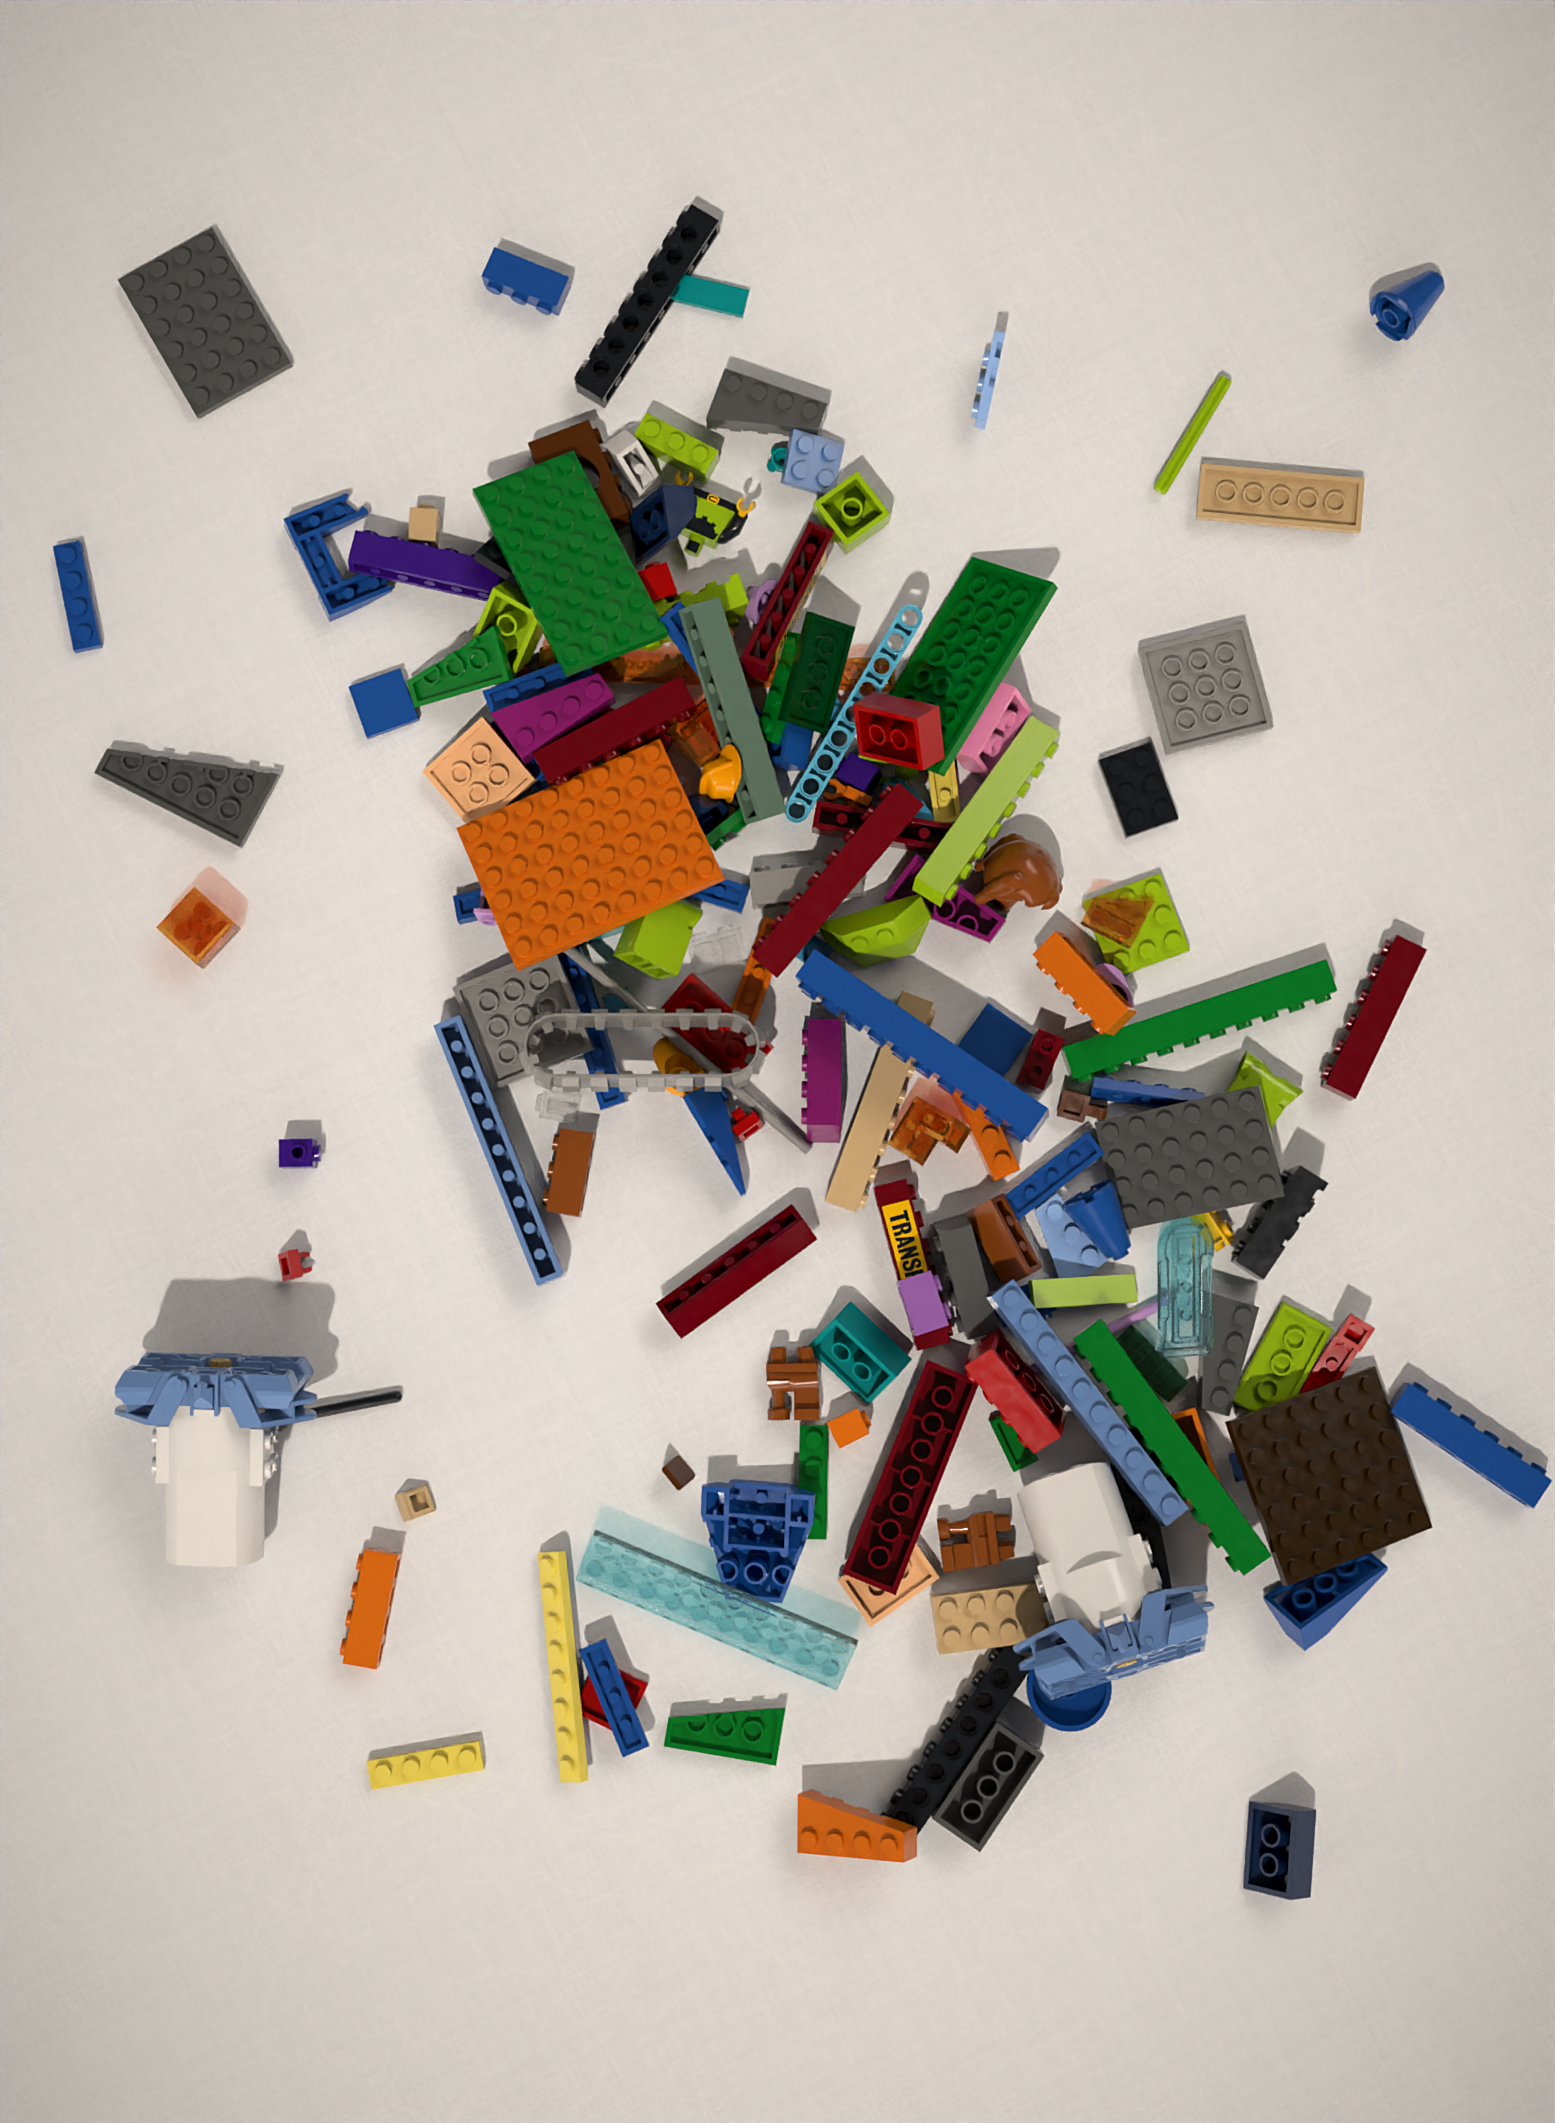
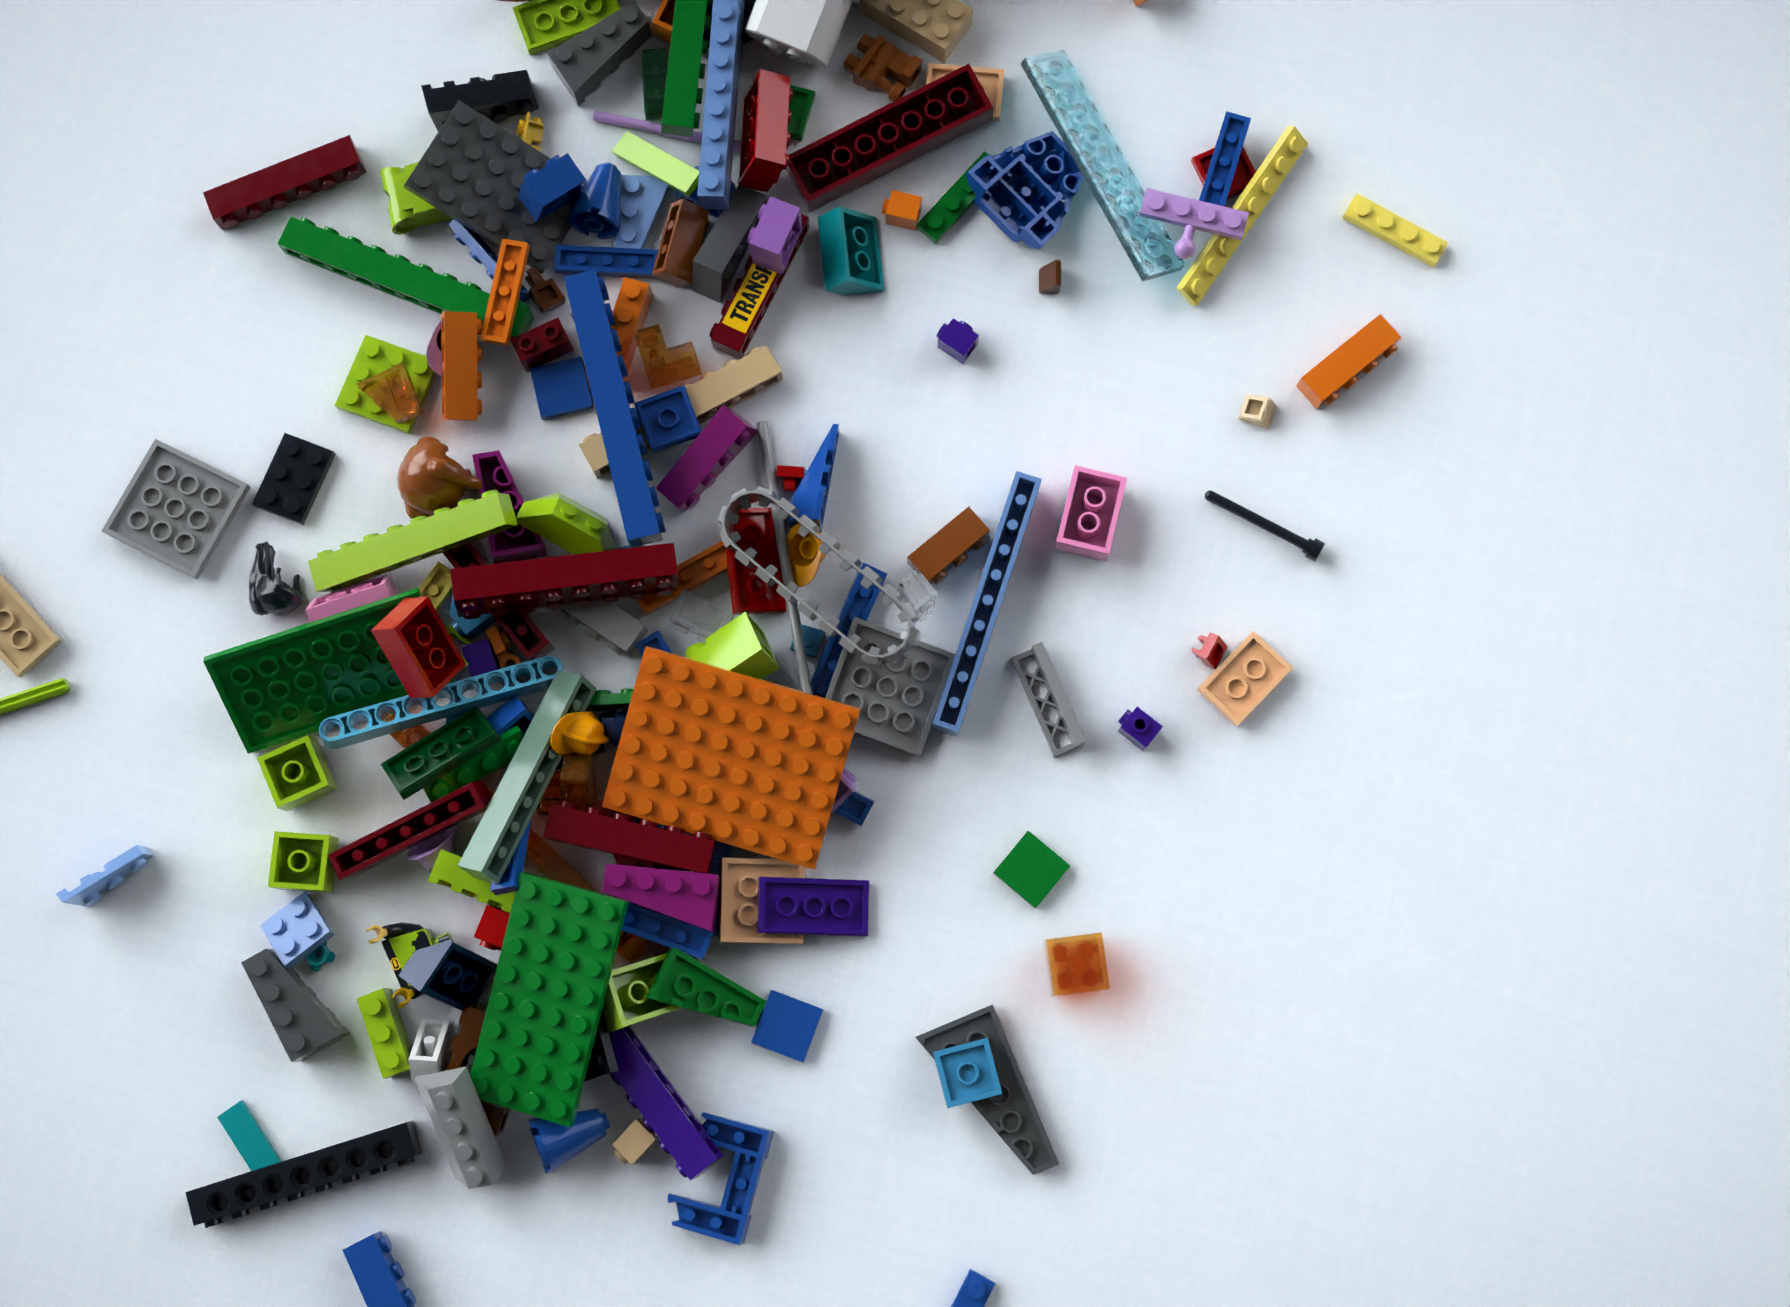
camera: 140 degrees left, 5 degrees down
(215, 778) = (967, 1073): none -> dark azure plate
(215, 1444) = (1368, 562): piece -> none
(247, 1265) = (1244, 678): none -> light nougat plate
(294, 975) = (1031, 869): none -> green tile
(385, 1126) = (1057, 695): none -> light grey fence
(437, 804) = (812, 906): none -> dark purple tile
(473, 473) = (561, 1143): none -> blue cone
(477, 1294) = (1090, 513): none -> bright pink brick
(554, 427) = (462, 1126): none -> light grey slope
(599, 1623) = (1193, 216): none -> lavender plate
(708, 1353) = (957, 340): none -> dark purple brick
(731, 1734) = (1161, 79): green wing -> none
(736, 1271) = (888, 376): dark red brick -> none
(794, 1377) = (908, 271): dark orange hips -> none
(879, 1082) = (668, 419): none -> blue tile
(917, 571) = (297, 773): none -> lime brick
(1072, 686) = (267, 590): none -> black piece
(1102, 1072) = (505, 292): none -> orange plate
(1141, 1187) = (551, 186): none -> blue brick
(1185, 1289) = (587, 104): clear light blue piece -> none

